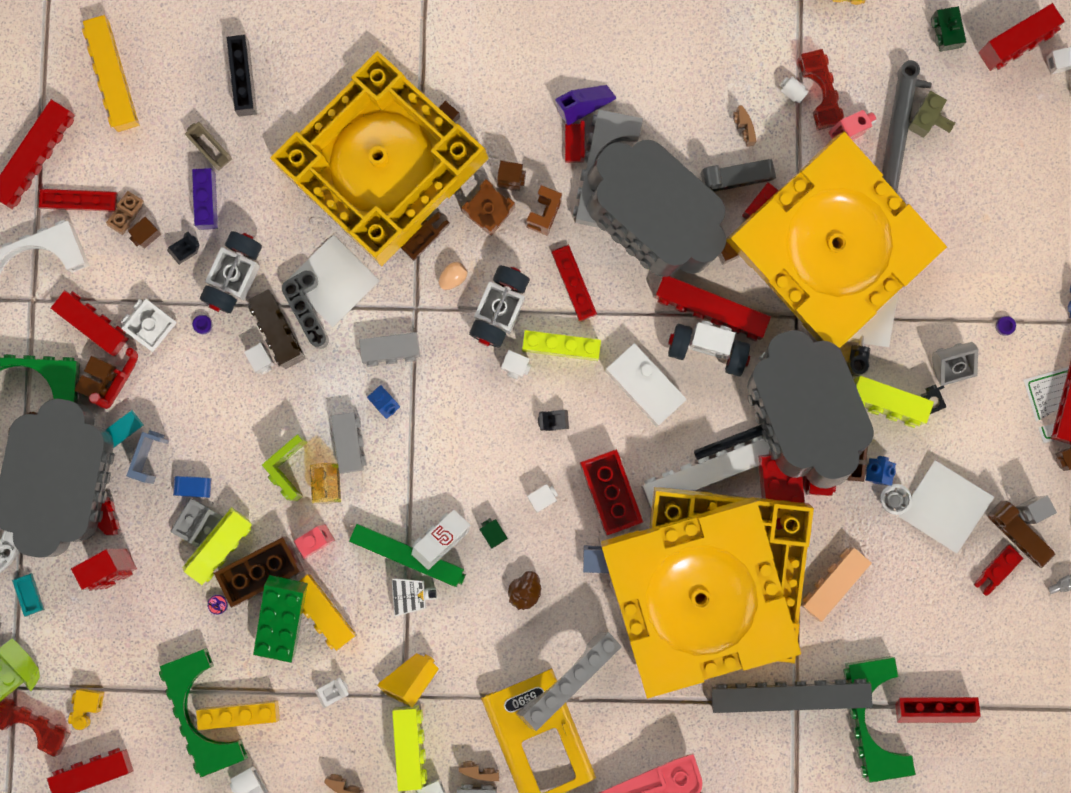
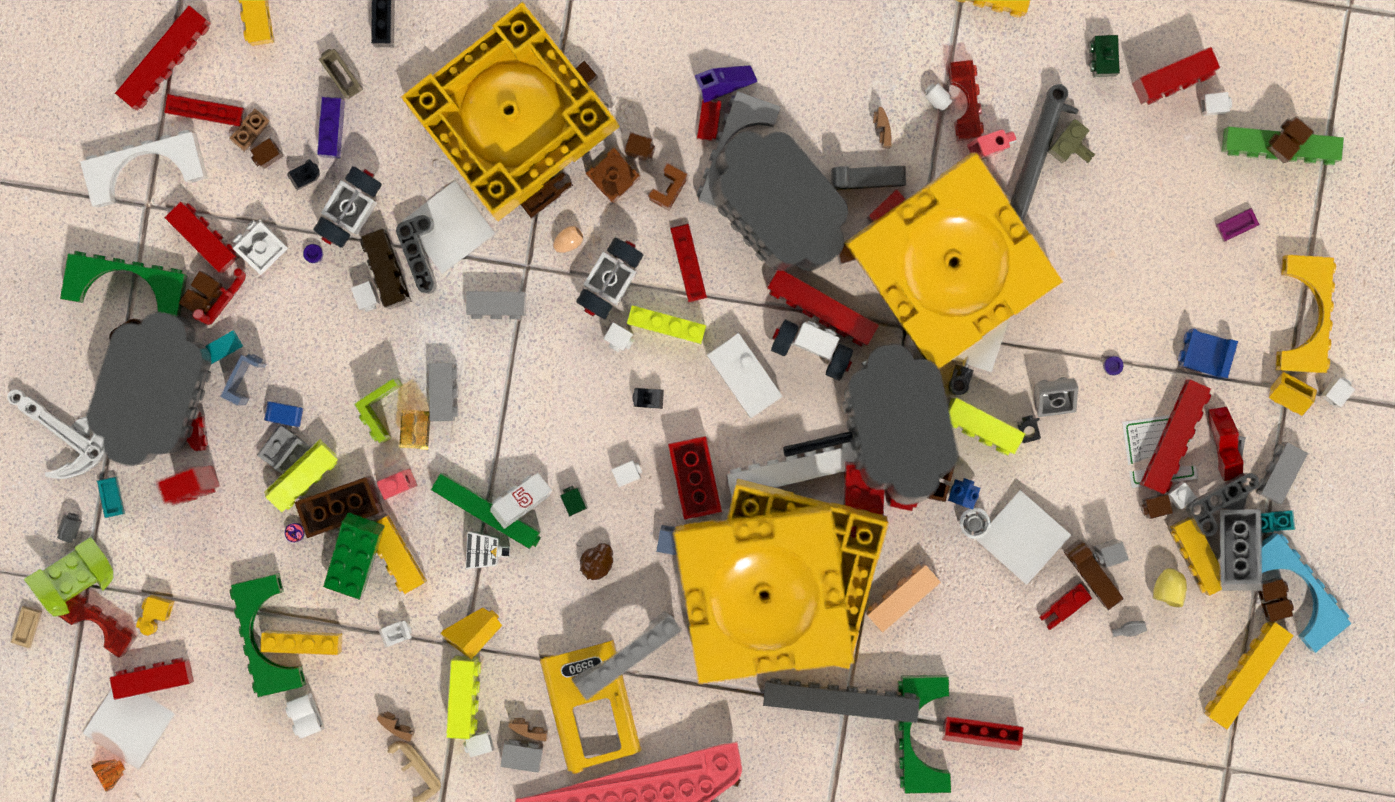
camera: 15 degrees right, 5 degrees up
(383, 402) = (482, 356): blue bracket -> none

